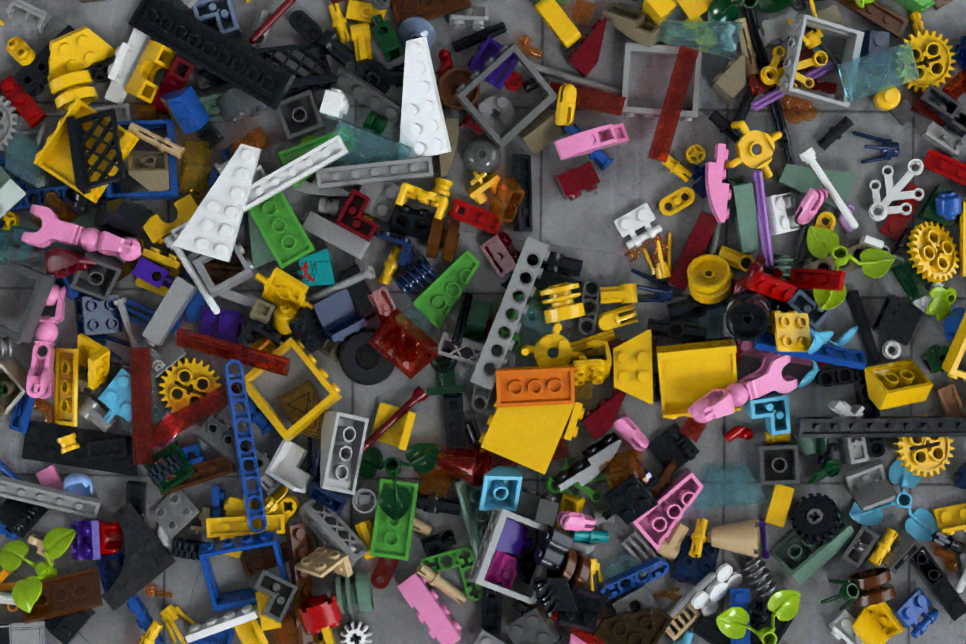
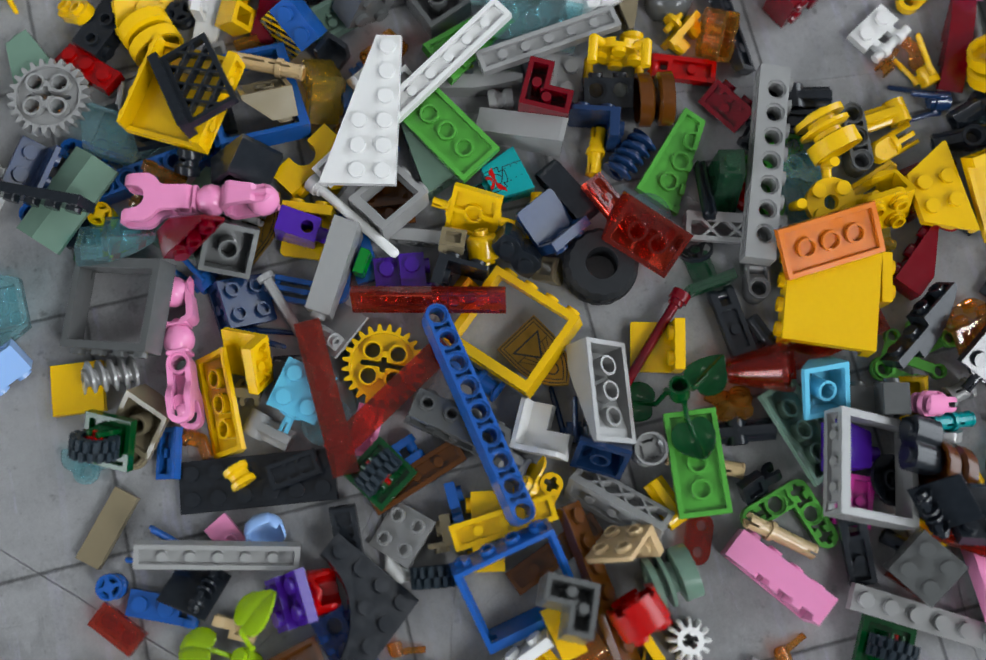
camera: 20 degrees left, 10 degrees down
(193, 309) = (362, 263): none -> green tile
(367, 273) = (575, 157): light grey bar -> none
(630, 432) = (950, 271): bright pink arm -> none

